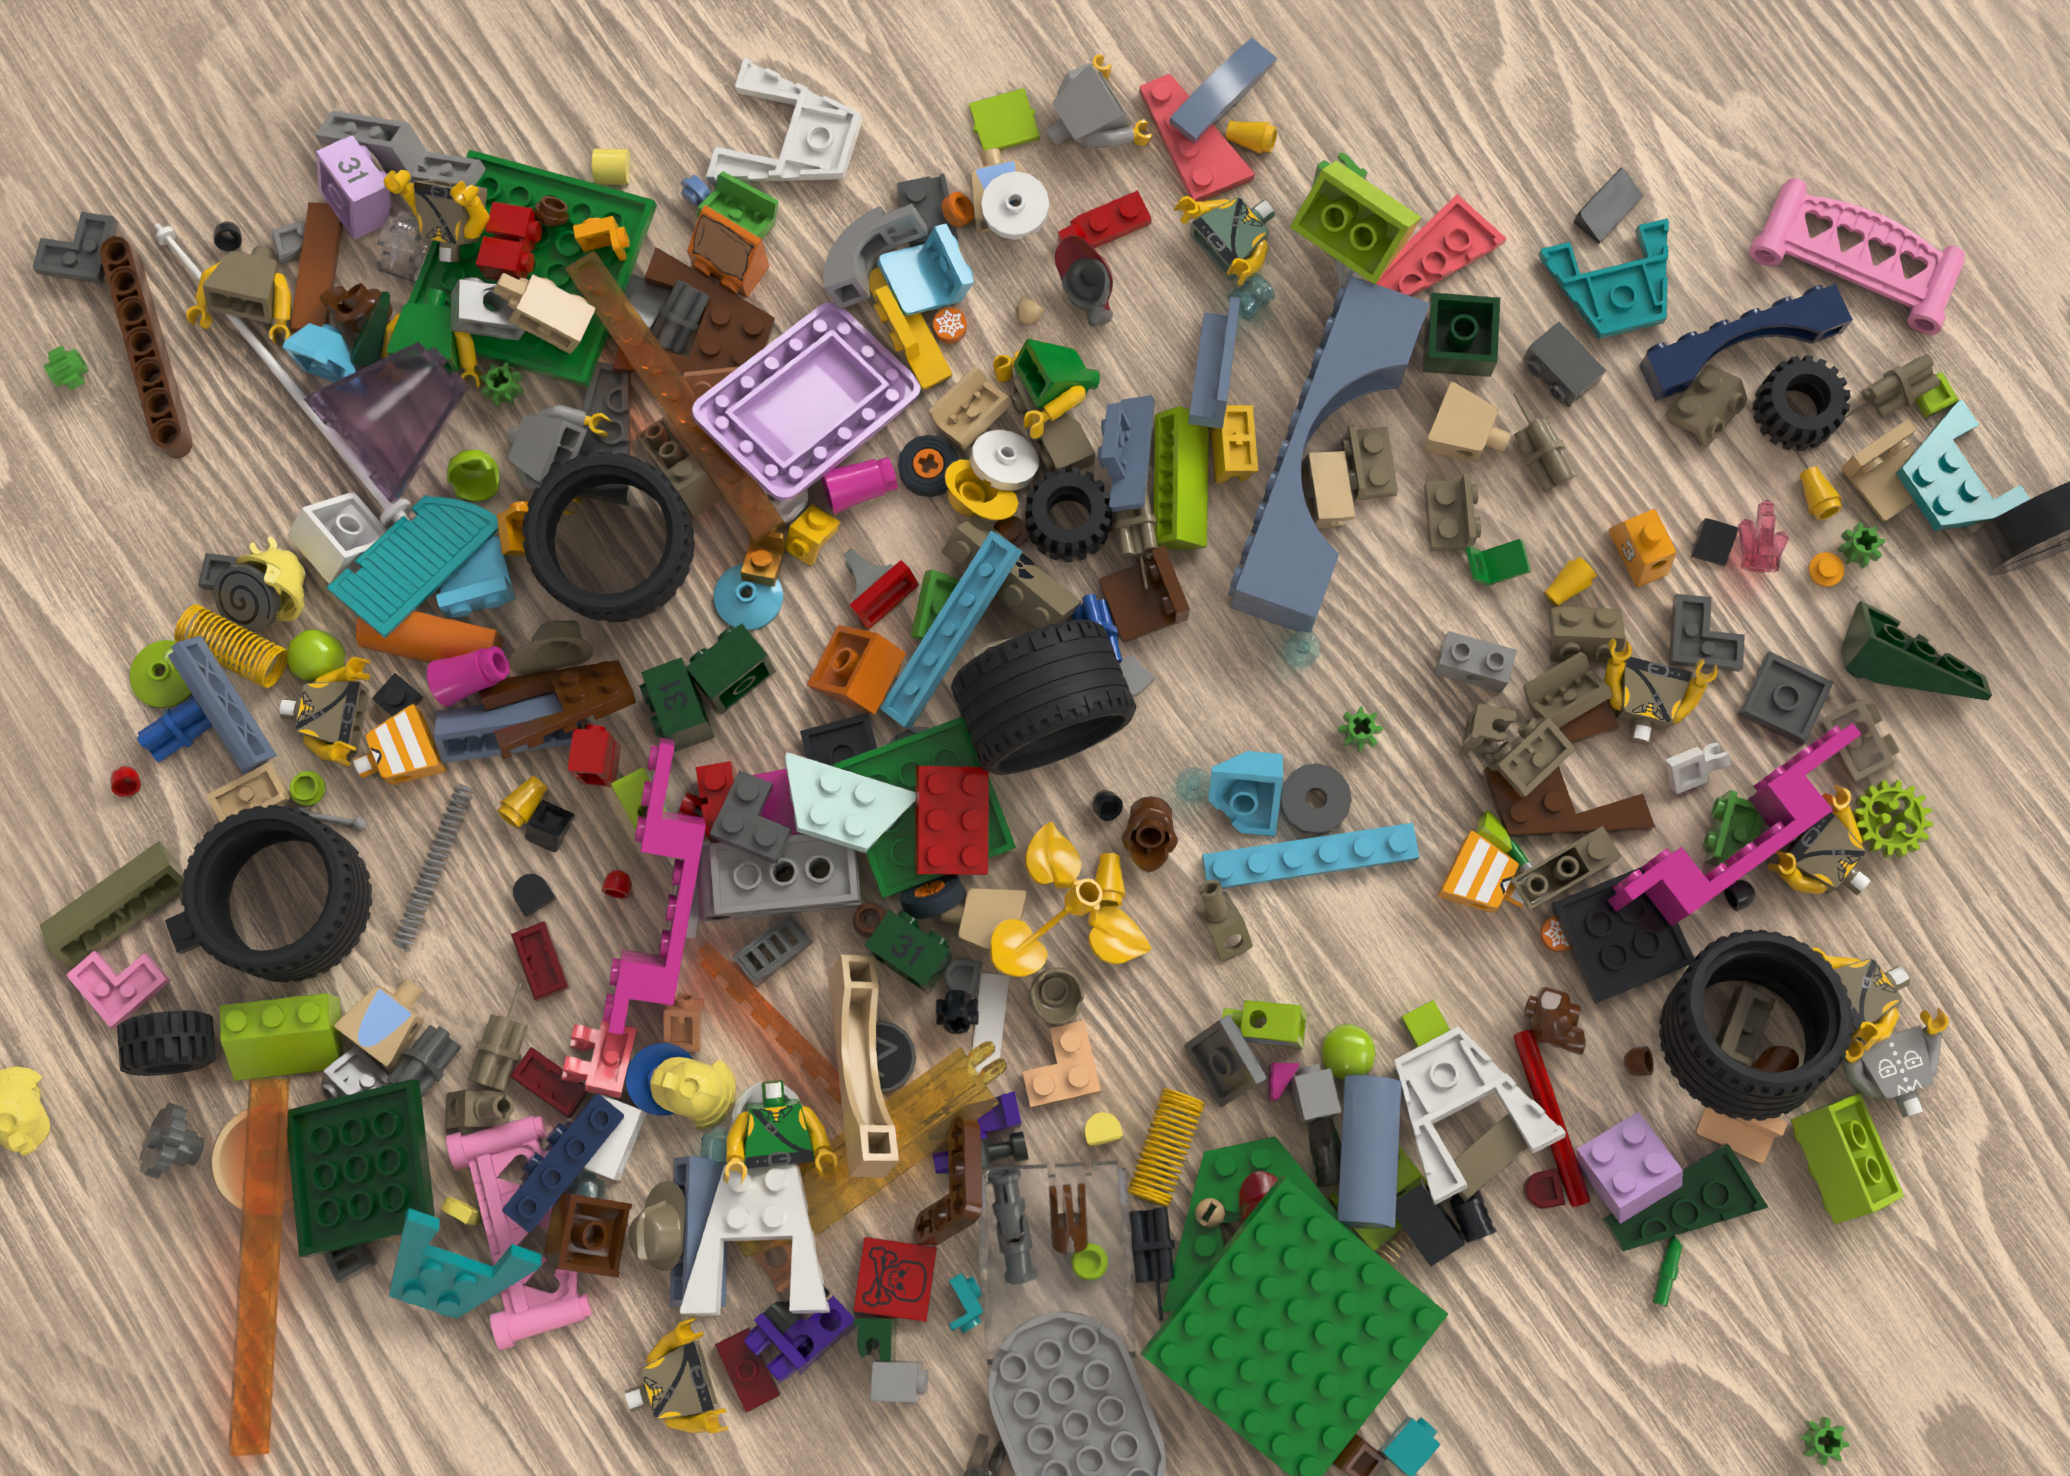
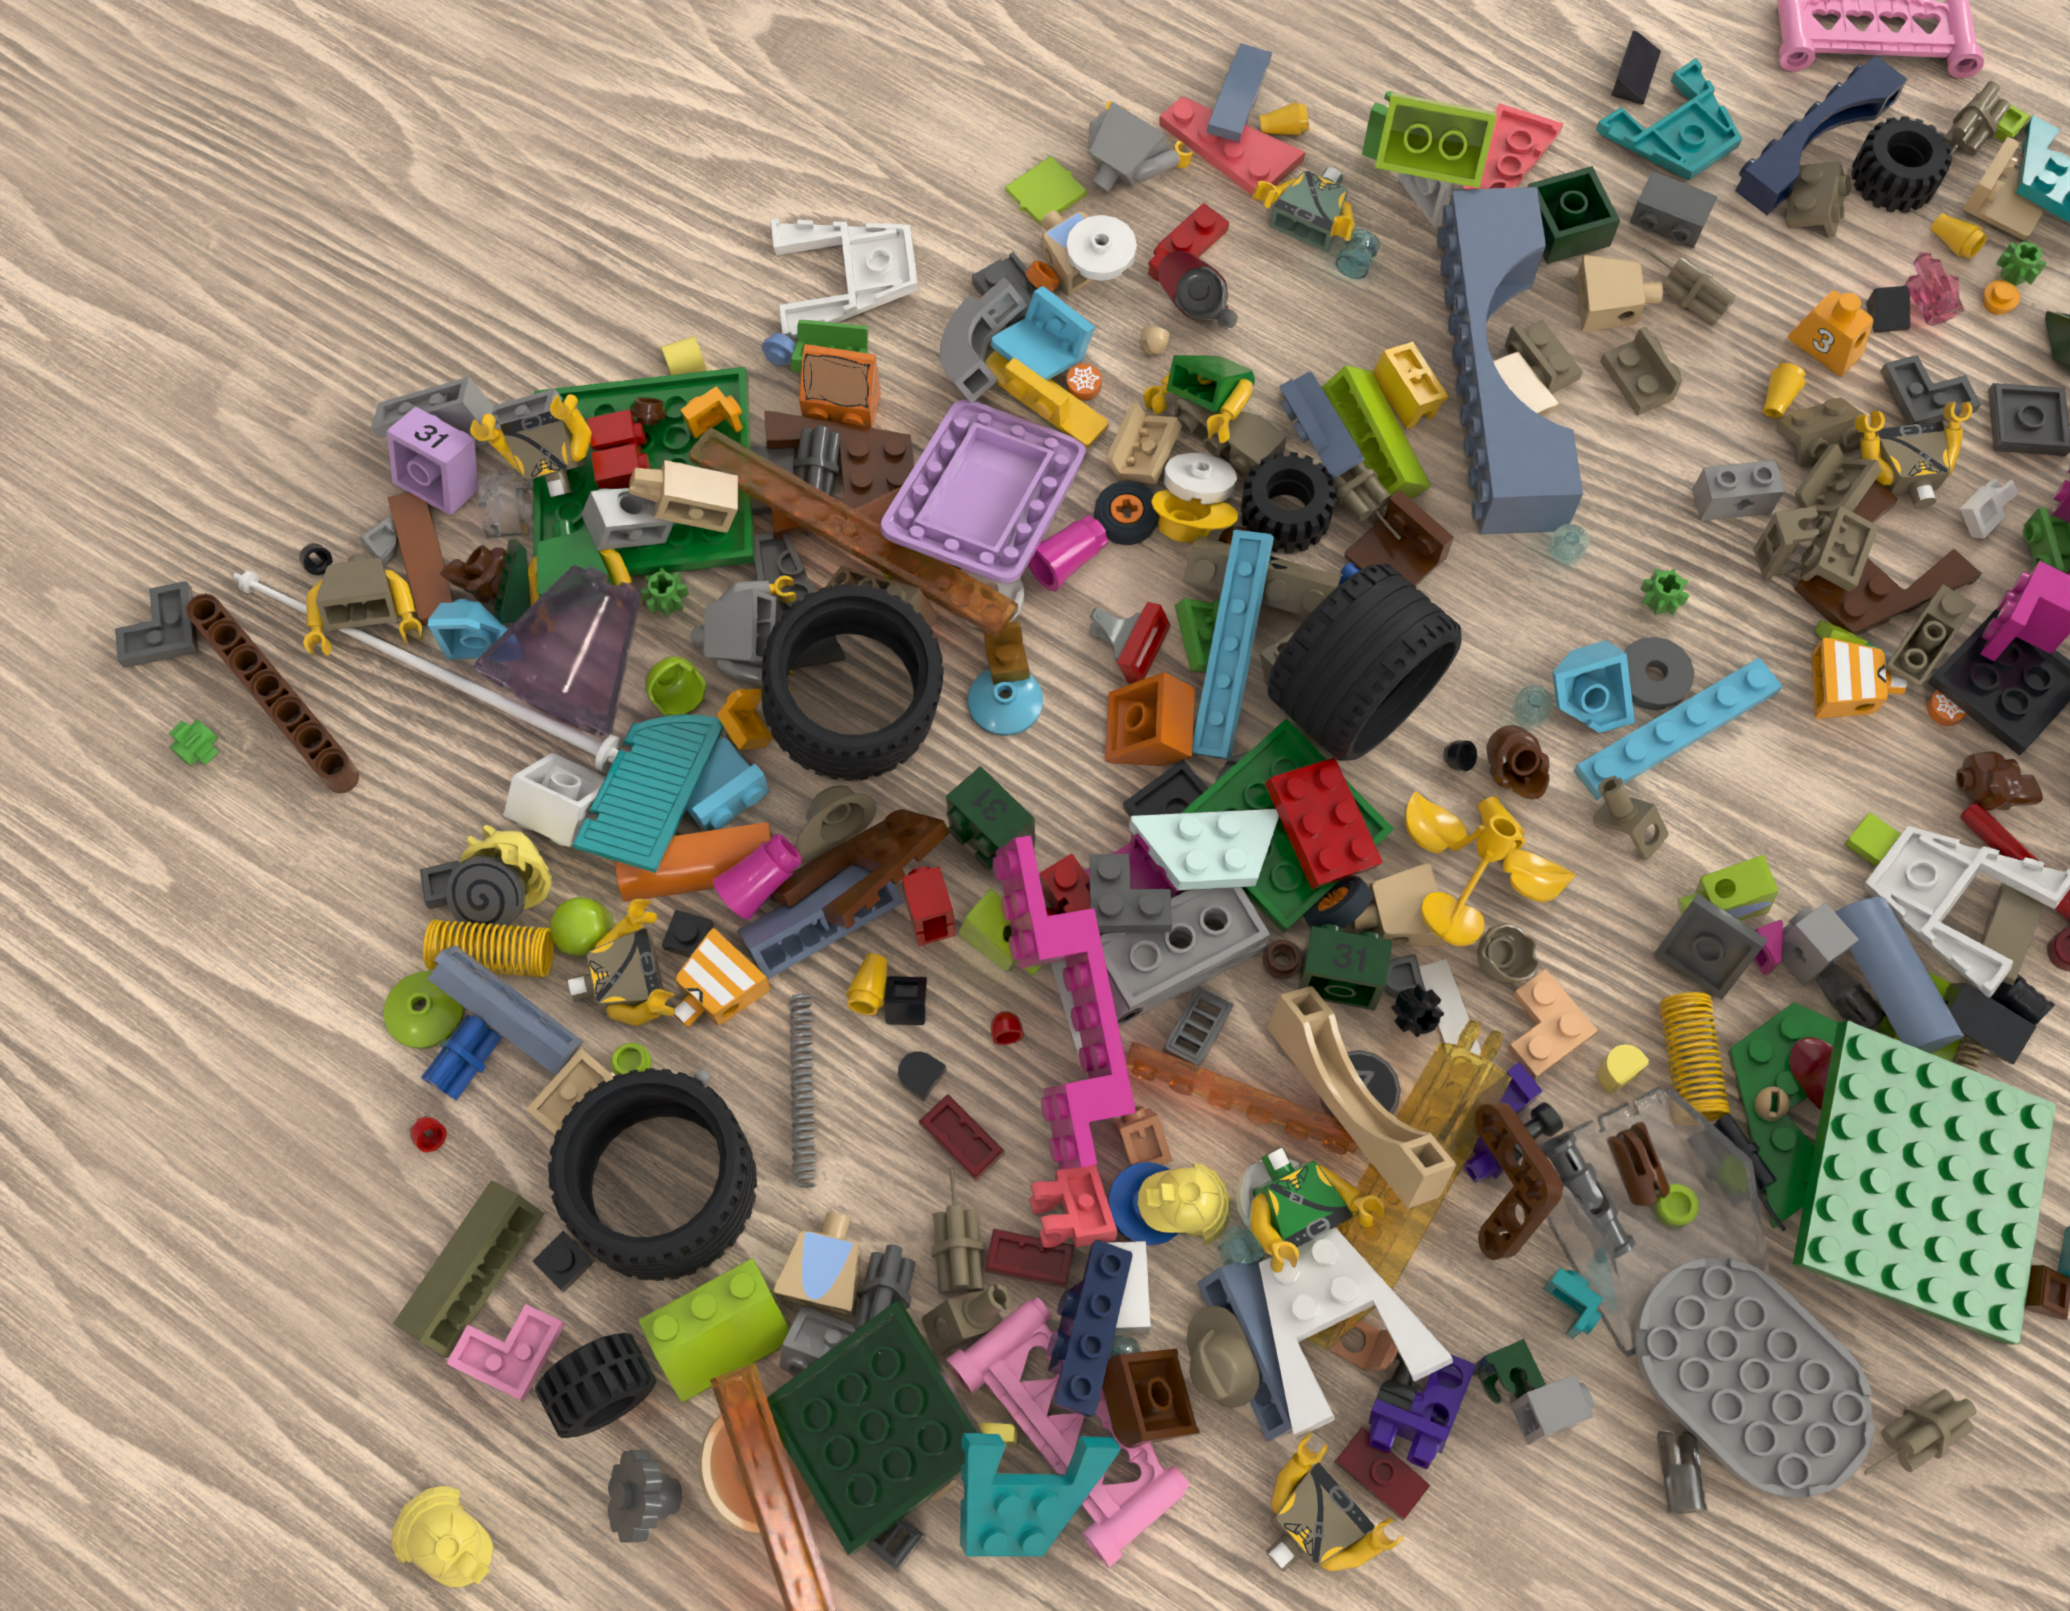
camera: 25 degrees left, 10 degrees down
(730, 667) = (1030, 760): dark green brick -> none
(810, 534) = (1042, 617): yellow bracket -> none
(895, 1279) = (1487, 1309): red tile -> none
(1214, 367) = (1363, 318): sand blue fence -> none
(1348, 1051) = (1814, 887): lime hair -> none
(1498, 562) = (1712, 395): green bracket -> none

